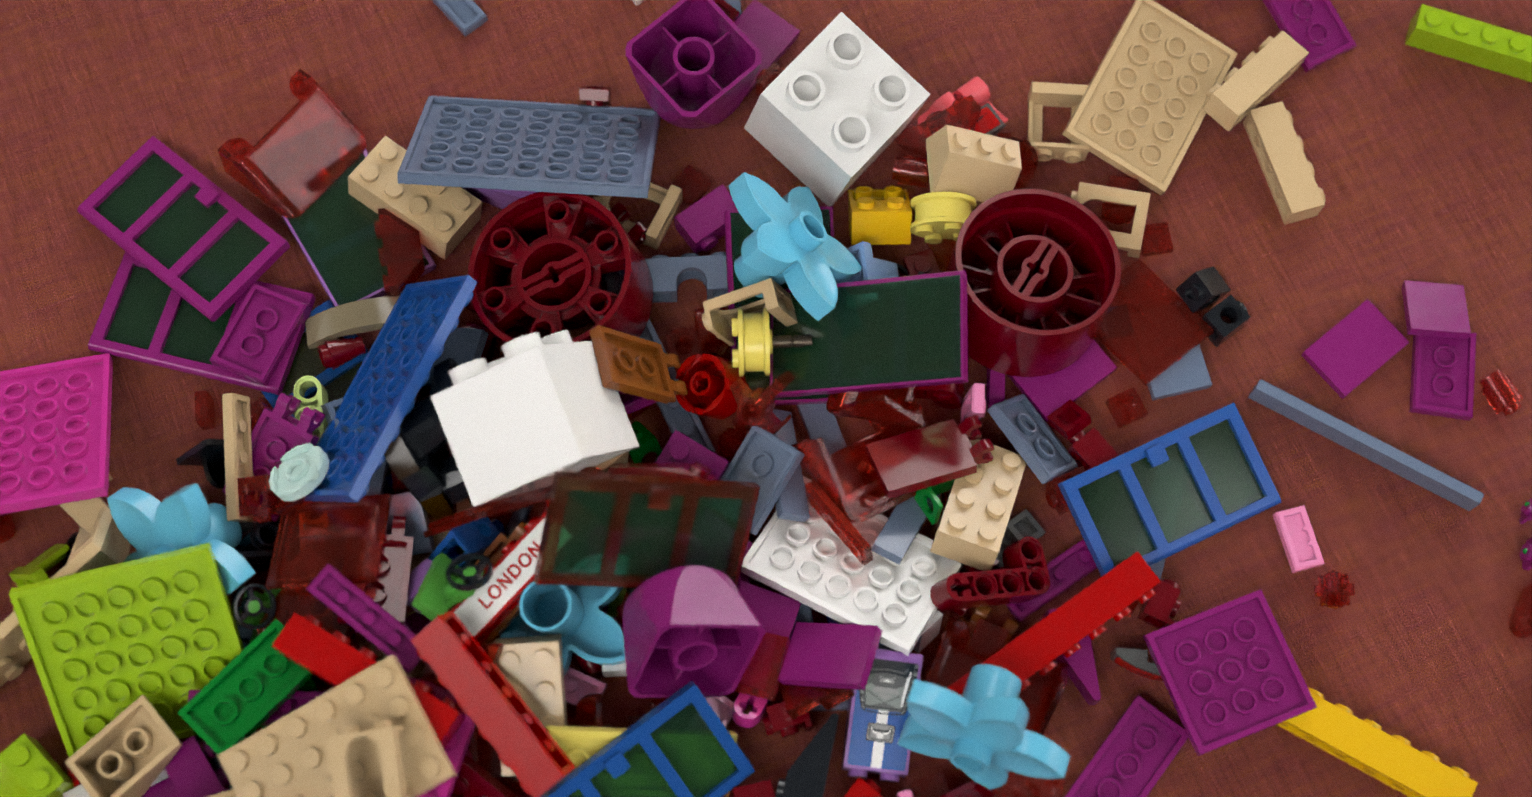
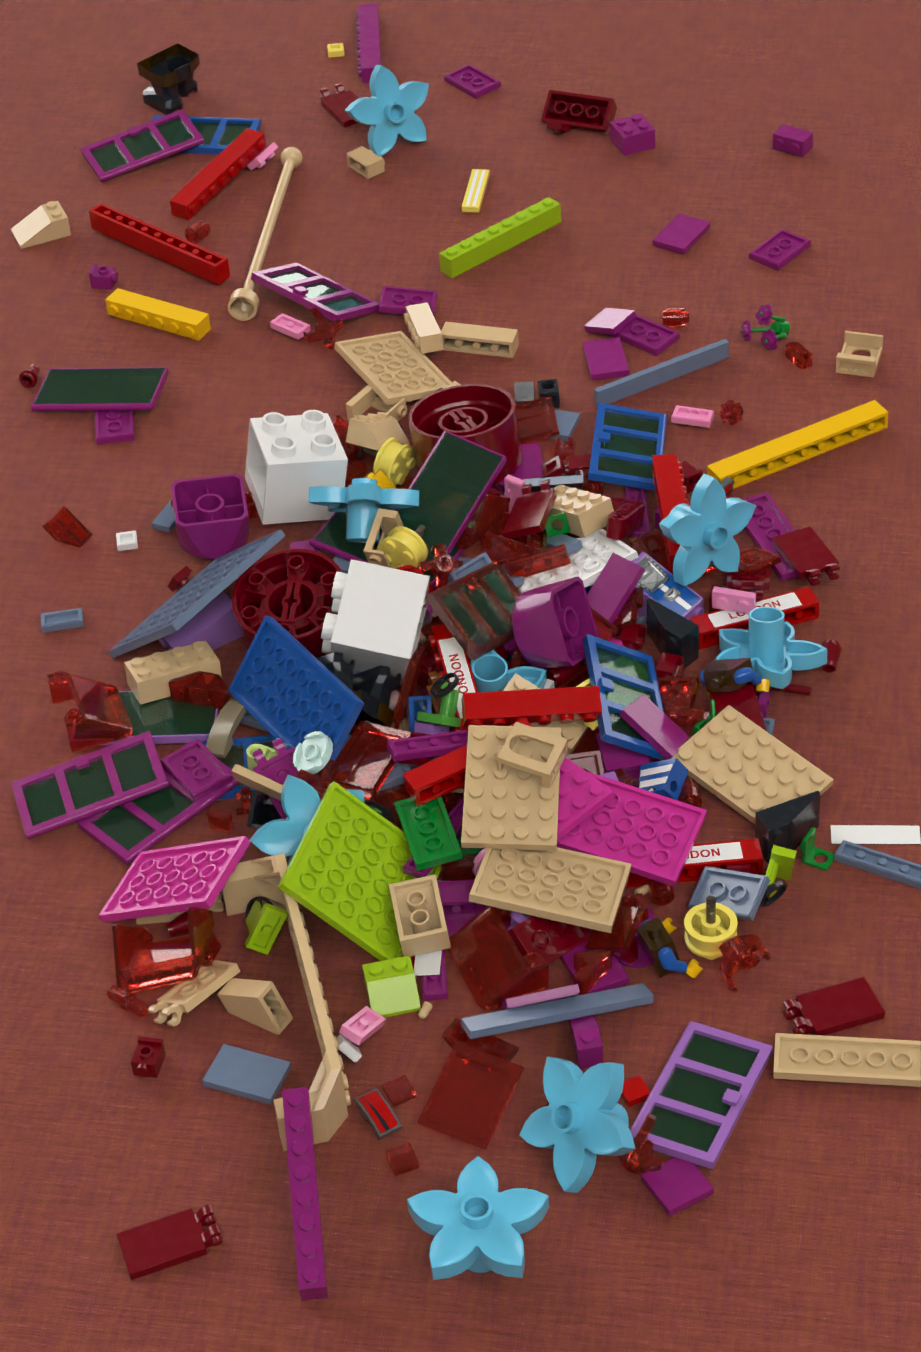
camera: 50 degrees left, 30 degrees down
(340, 351) = (240, 741): dark red cone -> none
(1229, 672) = (746, 455): magenta plate -> none

